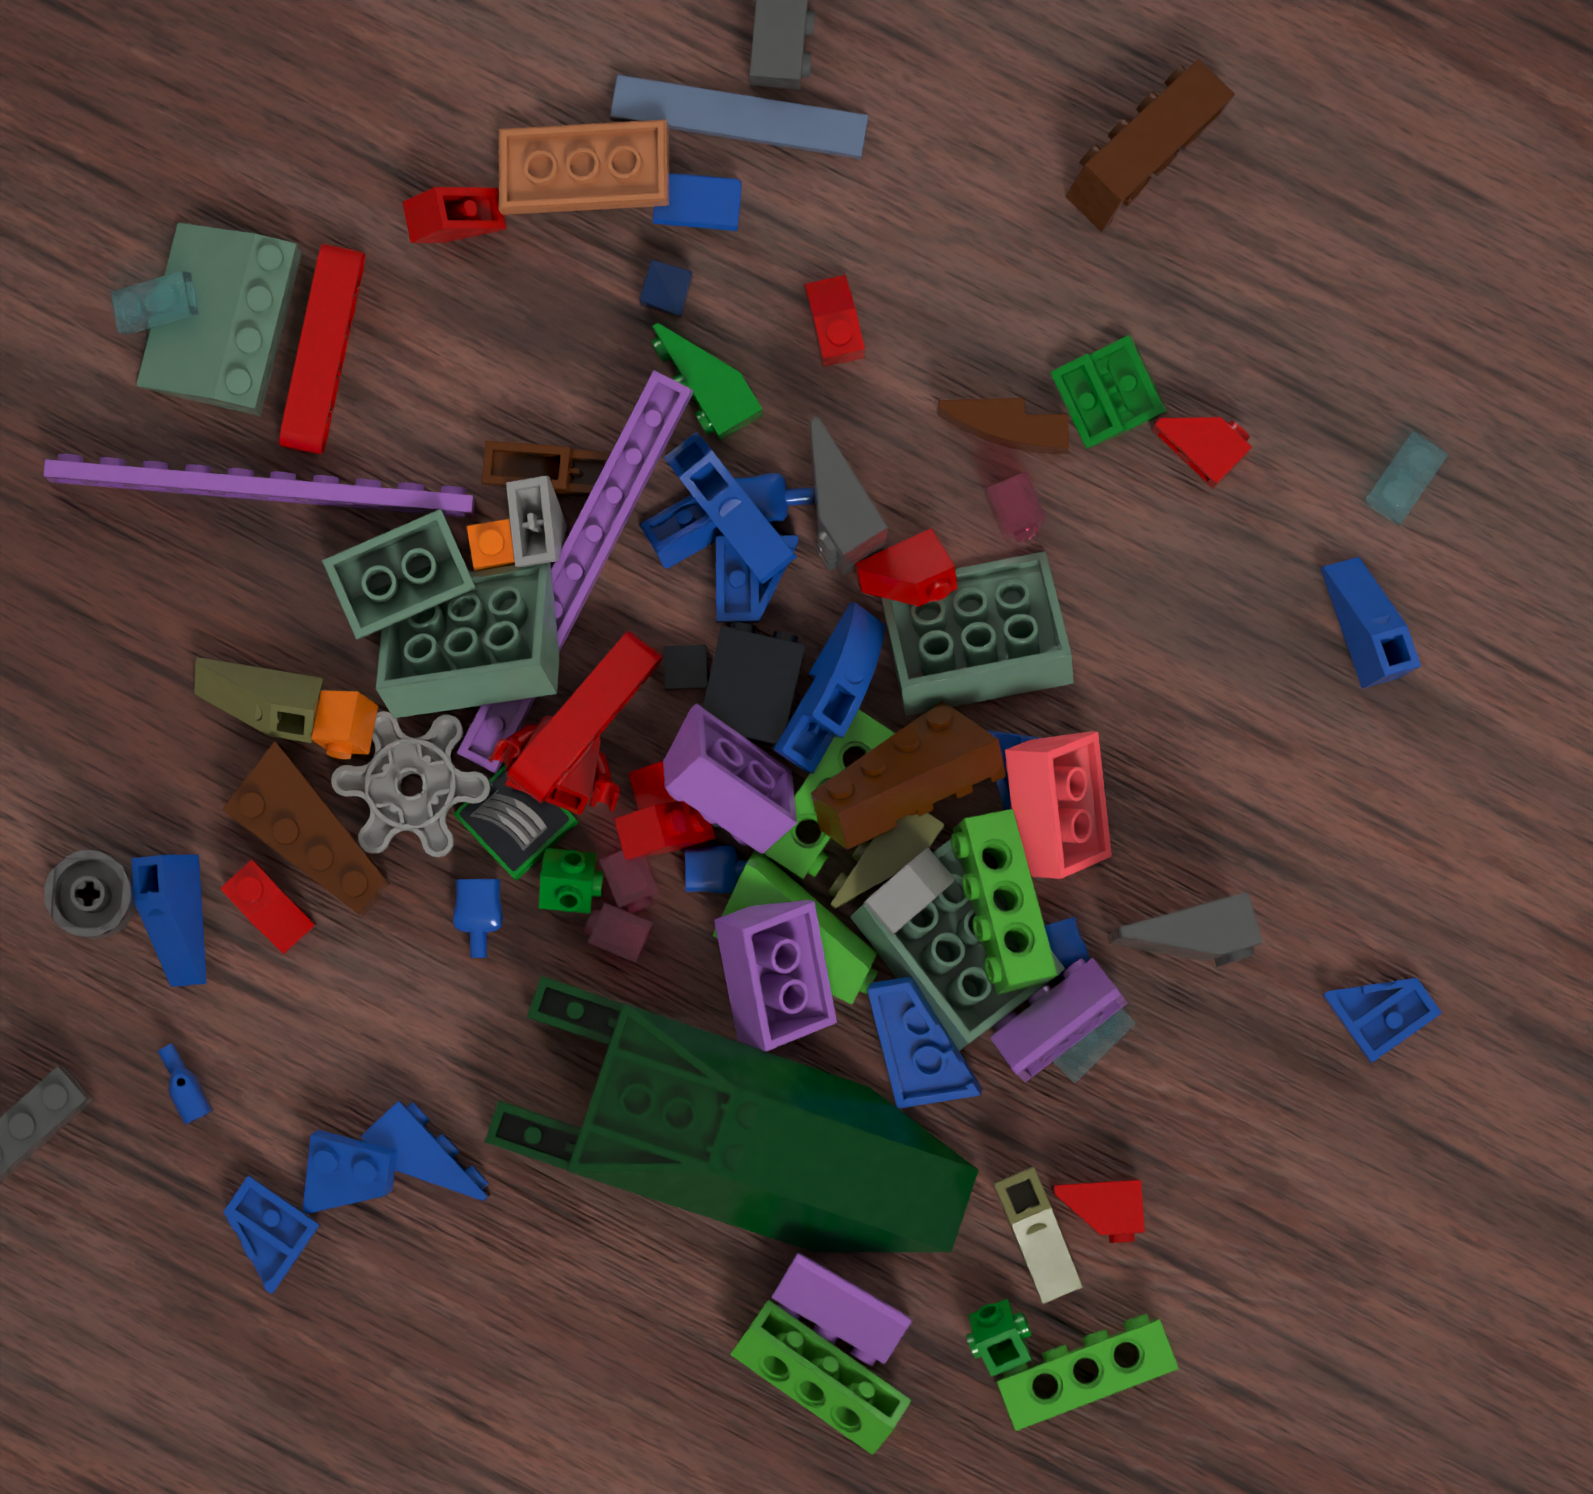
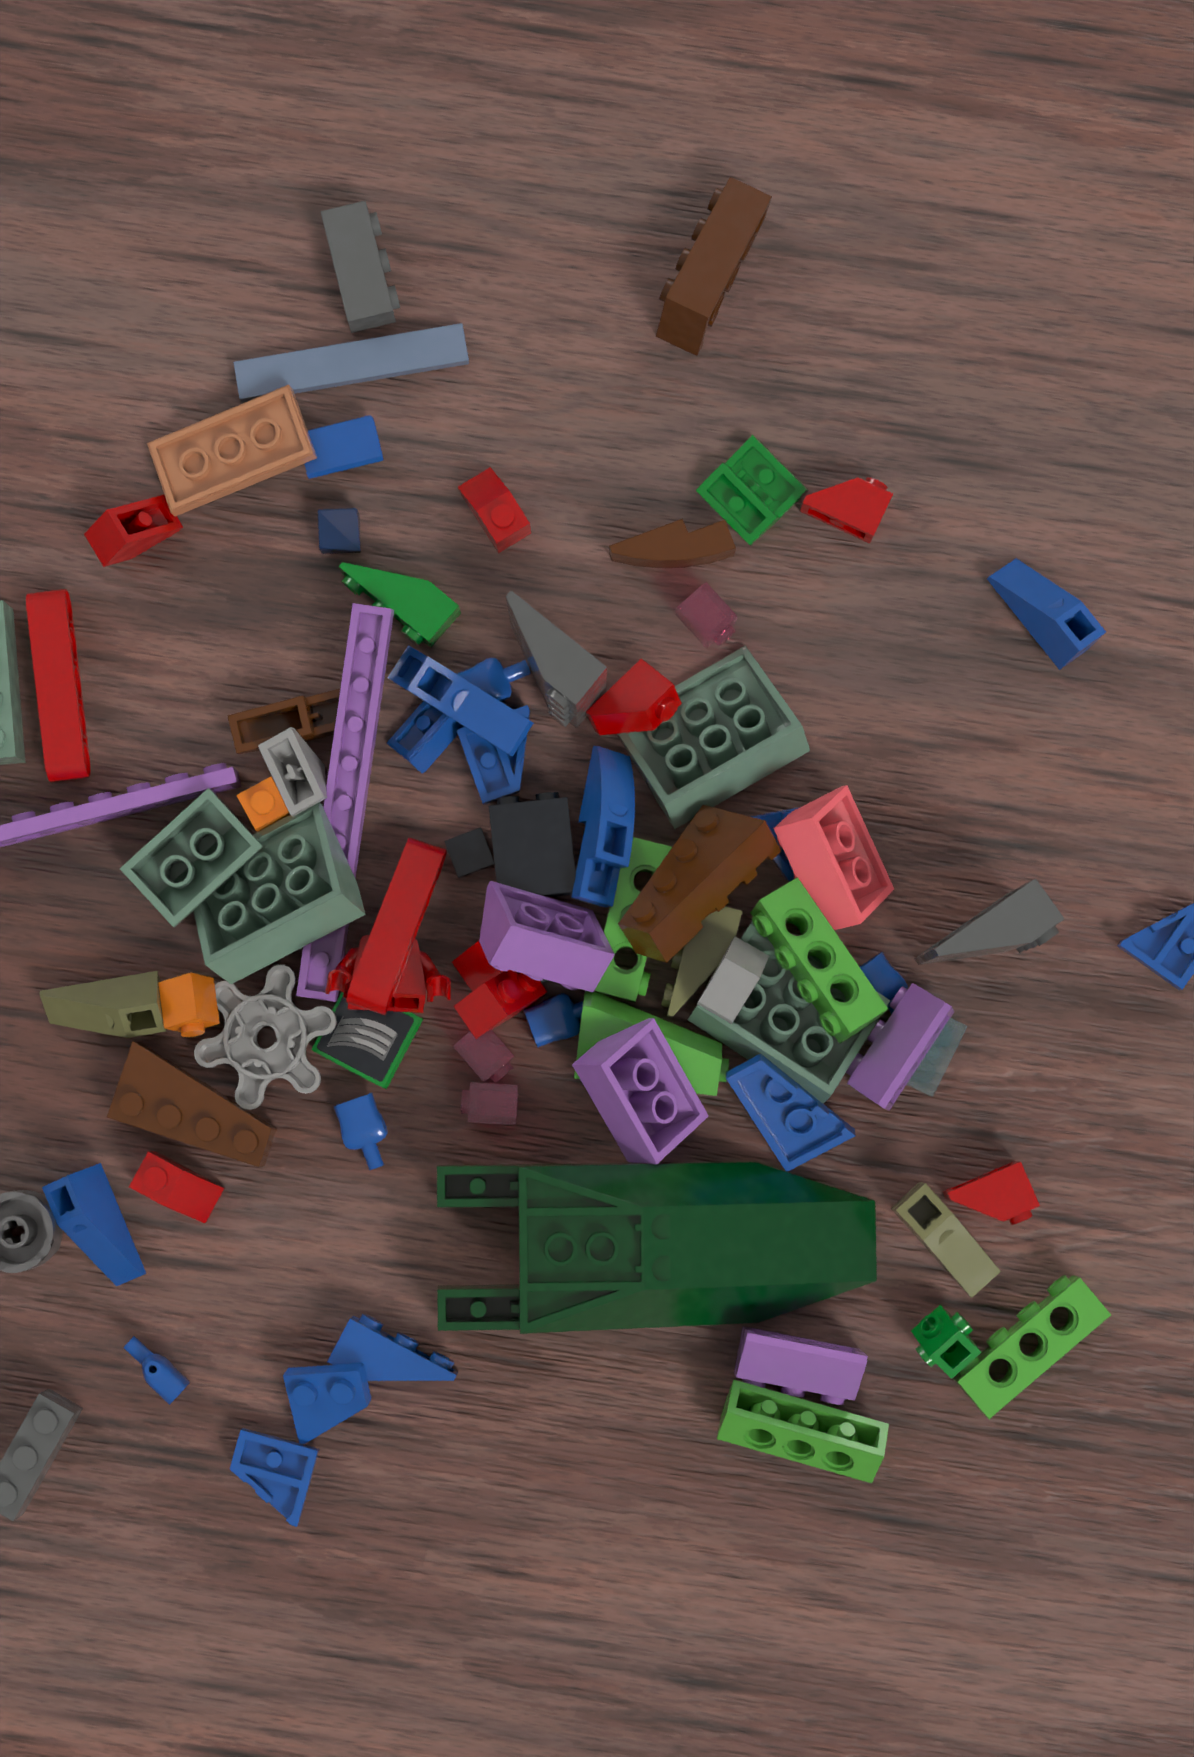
camera: 20 degrees left, 0 degrees up
(569, 880) = (432, 1073): green brick -> none
(1405, 478) = (1032, 477): clear light blue plate -> none

